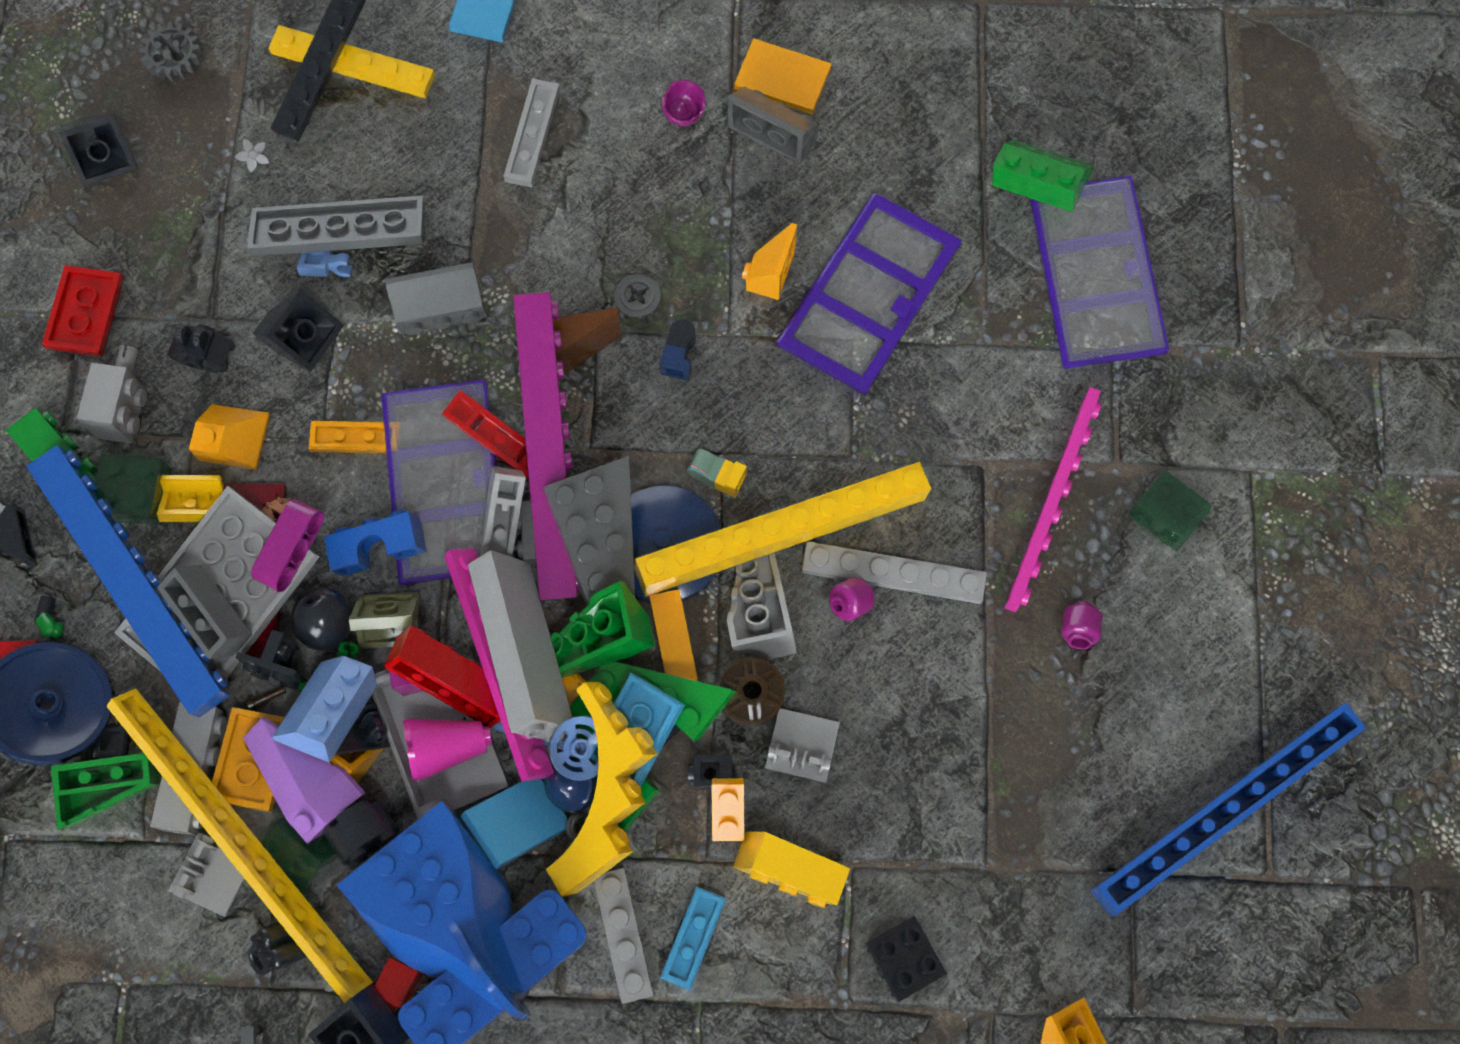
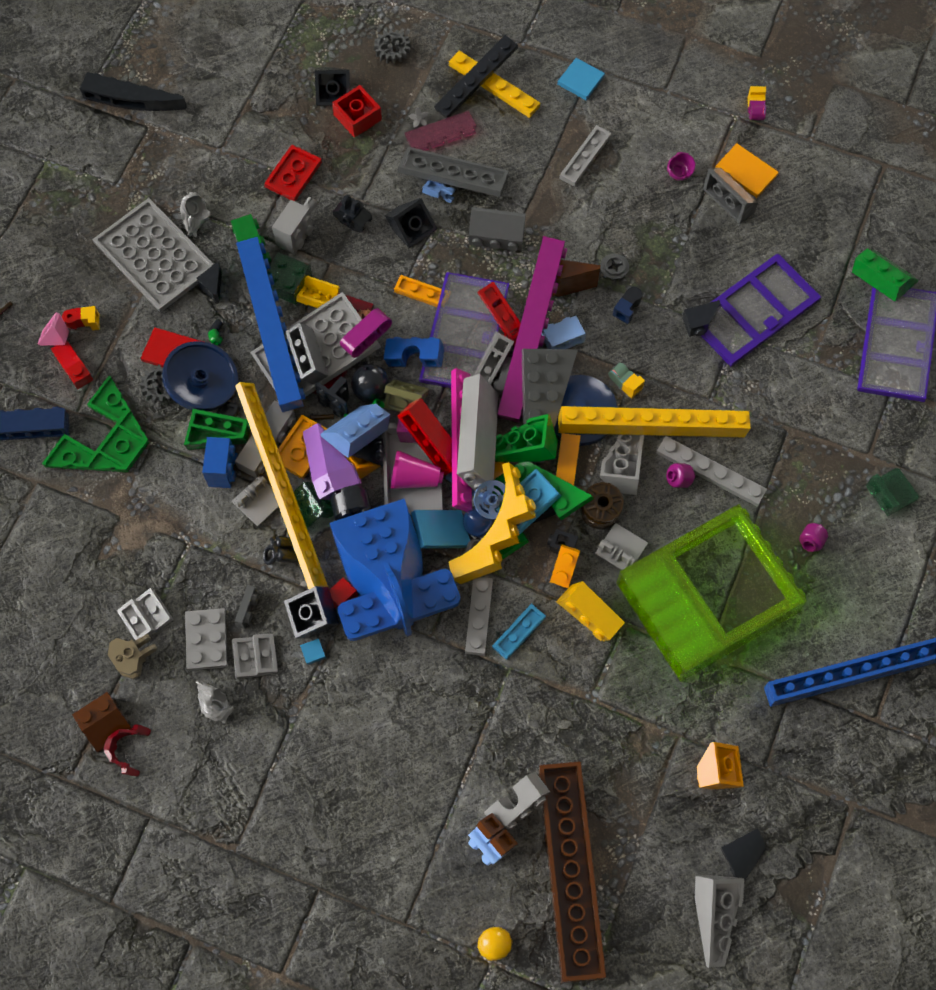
camera: 20 degrees right, 5 degrees down
(125, 838) = (219, 462): none -> blue brick
(150, 176) = (357, 111): none -> red brick
(229, 436) = (351, 268): light orange slope -> none
(288, 169) = (438, 131): none -> clear pink windscreen
(597, 433) = (564, 334): none -> light blue brick
(771, 264) = (701, 273): light orange slope -> none
(795, 337) = (699, 318): none -> black slope
(905, 959) = (639, 686): black hinge -> none
(922, 823) = (678, 614): none -> clear neon green panel
(1051, 511) = (819, 465): dark pink plate -> none

